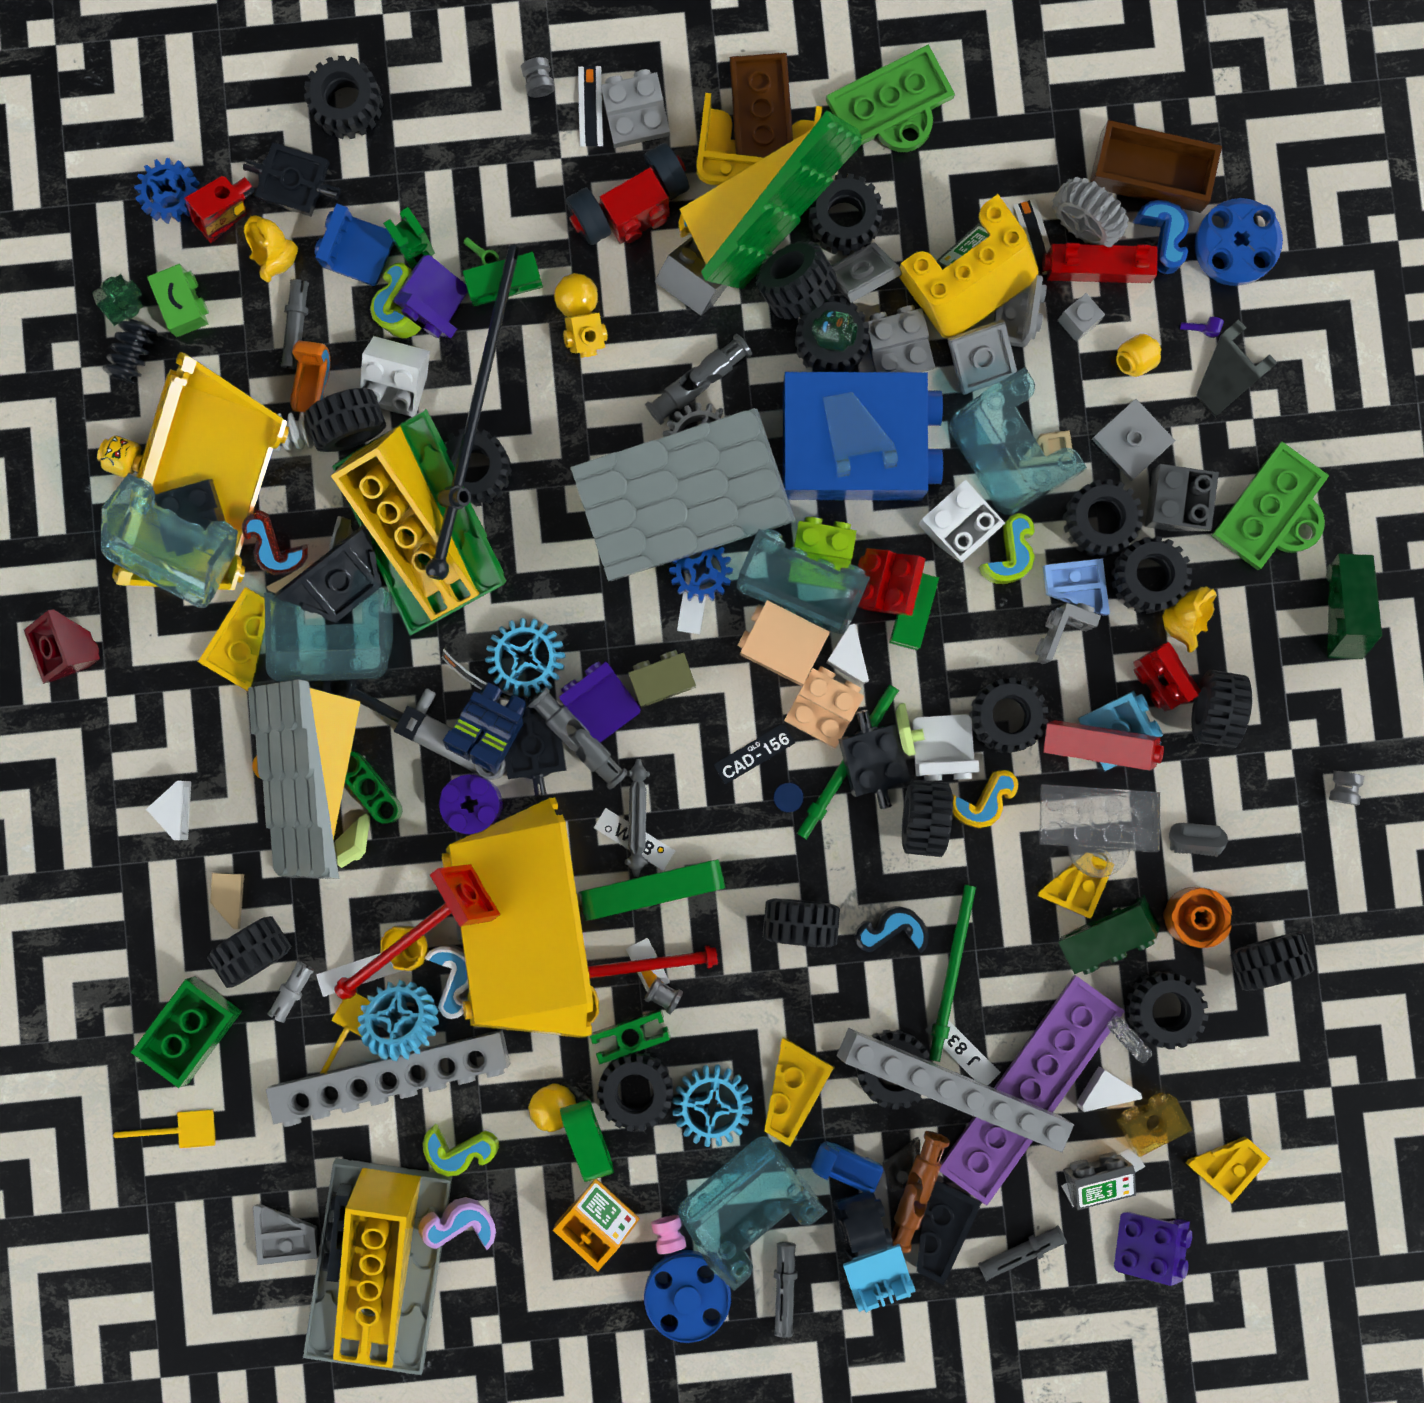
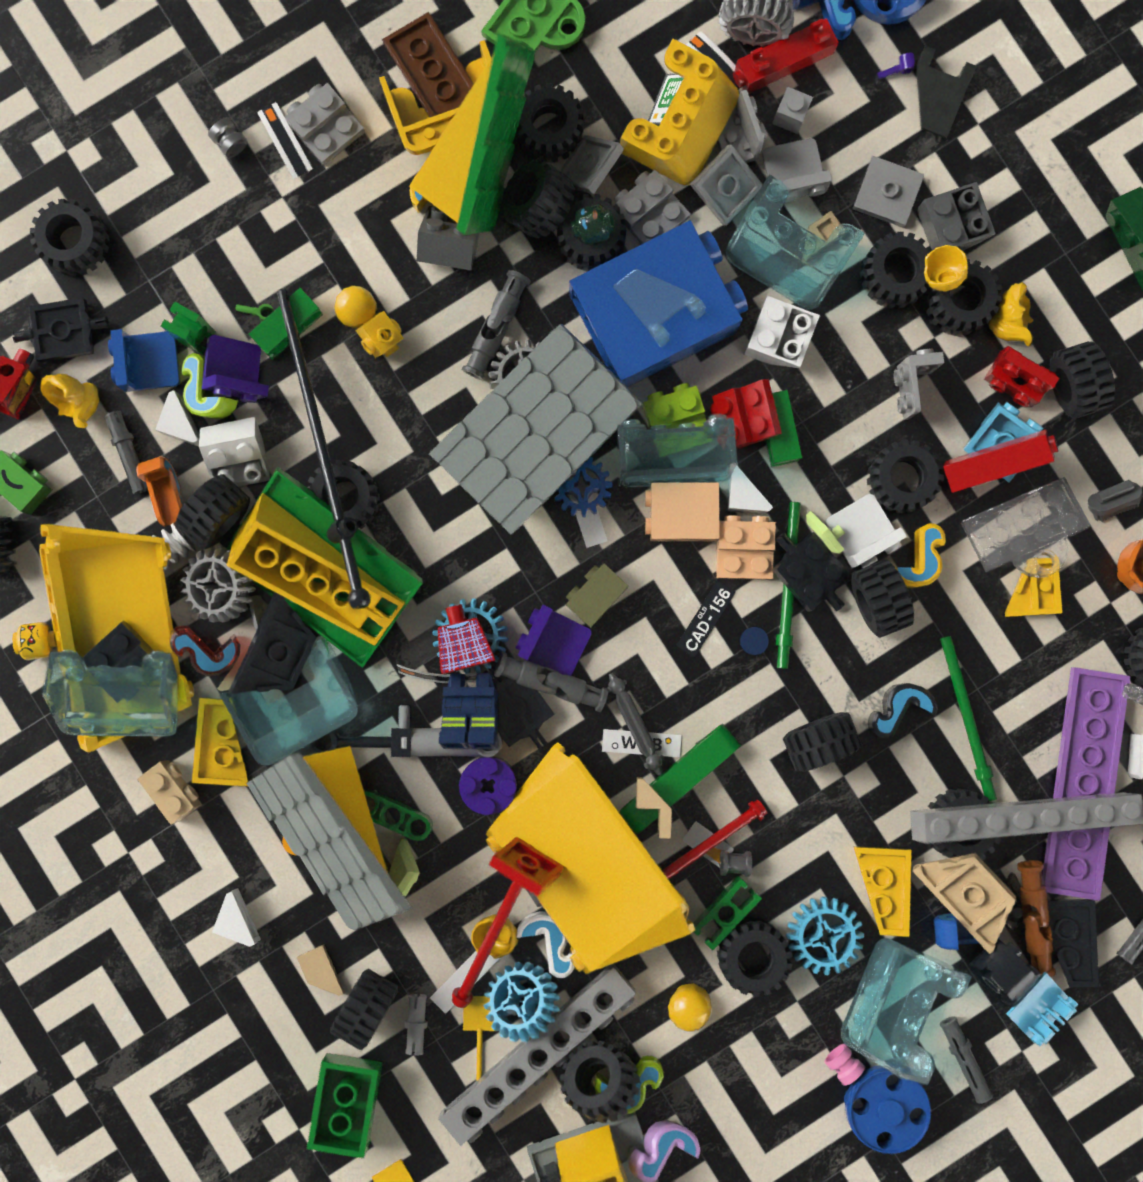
camera: 25 degrees left, 0 degrees up
(60, 646) = (66, 830): dark red slope -> none
(174, 659) = (170, 791): none -> tan brick
(301, 497) = (207, 596): none -> light grey gear
(356, 318) = (176, 420): none -> white slope
(419, 1114) = (619, 1089): none -> black tyre
(513, 659) = (462, 642): none -> torso
(586, 1140) = (735, 1021): green beam -> none
(596, 1224) = (779, 1088): slope -> none
(612, 892) = (649, 799): none -> tan slope
(633, 204) = (365, 203): brick -> none
(866, 1136) = (970, 894): none -> tan wing
(968, 1056) = (1017, 782): white sticker -> none
(1018, 552) = (841, 335): lime animal -> none
(1057, 374) = (798, 167): none -> light grey bracket
(1078, 583) = (905, 336): light blue wing -> none
(1110, 937) = (1086, 620): dark green wedge -> none
(1138, 355) = (857, 118): yellow head -> none
(1144, 538) = (945, 268): none -> yellow hair
(1274, 508) = (1036, 190): bright green plate -> none

